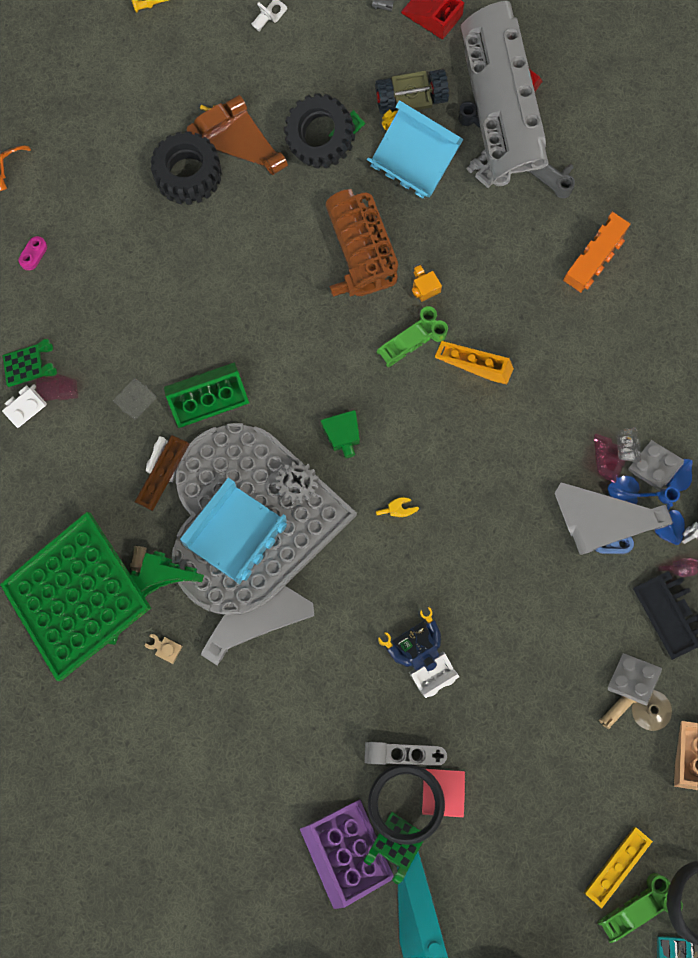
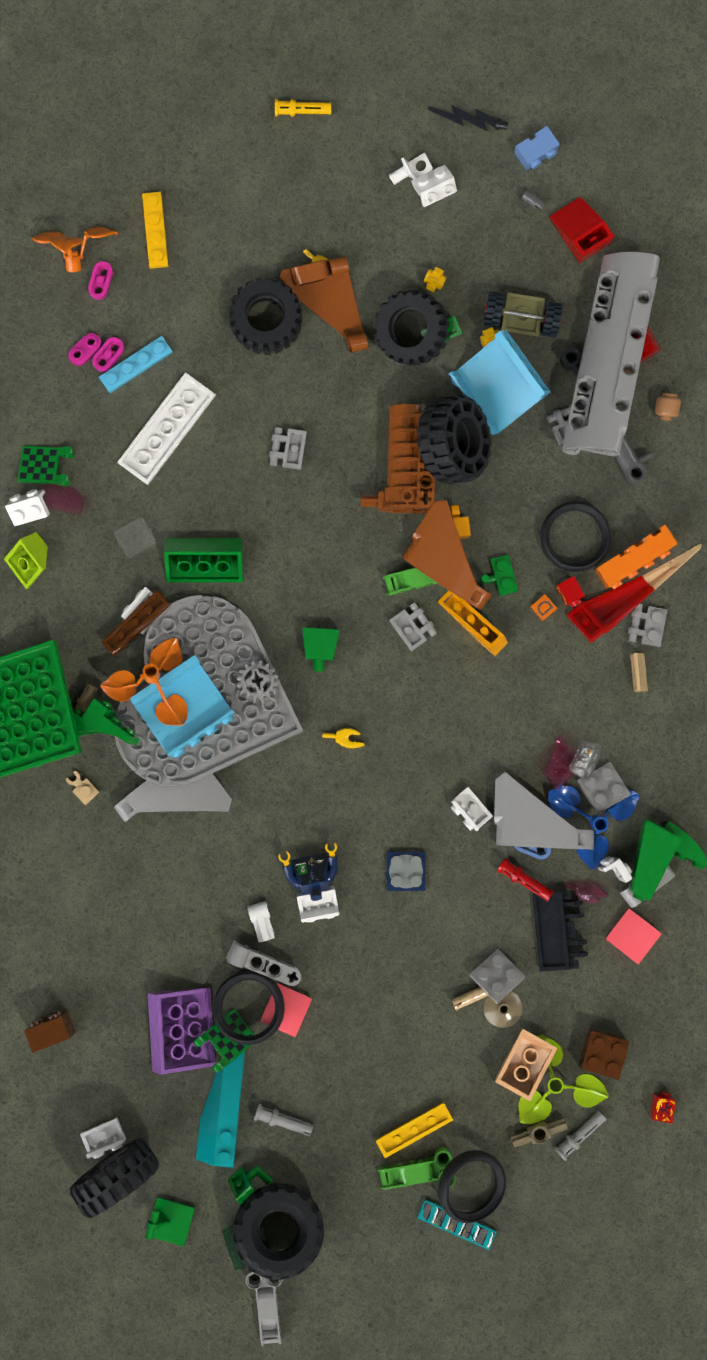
camera: 15 degrees right, 10 degrees up
(27, 192) = (100, 281): none -> dark pink plate
(39, 451) = (28, 559): none -> lime slope
(54, 250) = (107, 354): none -> dark pink plate
(63, 135) = (155, 230): none -> yellow plate
(83, 250) = (135, 364): none -> medium azure plate
(130, 295) = (166, 428): none -> white tile
(201, 490) = (165, 656): none -> orange plant
(213, 908) = (51, 1031): none -> reddish brown brick
(253, 269) = (294, 448): none -> light grey plate
(294, 19) = (434, 185): none -> white bracket
(324, 88) = (434, 279): none -> yellow gear
(385, 712) = (261, 919): none -> white piece
(395, 205) = (454, 439): none -> black tyre
(417, 389) = (407, 629): none -> light grey plate
(422, 311) = (440, 555): none -> dark orange panel
(474, 910) = (274, 1118): none -> light grey pin
(484, 313) = (502, 575): none -> green plate
(505, 612) = (405, 871): none -> light grey piece
(532, 327) = (543, 607): none -> orange tile
(542, 530) = (471, 809): none -> white bracket
(543, 231) = (593, 512): none -> black tyre
(550, 304) = (570, 592): none -> red brick
(568, 123) = (667, 406): none -> medium nougat head
(591, 307) = (607, 610): none -> red plate
(612, 575) = (517, 875): none -> red pin
(636, 308) = (653, 625): none -> light grey plate
(641, 353) = (638, 672): none -> tan slope

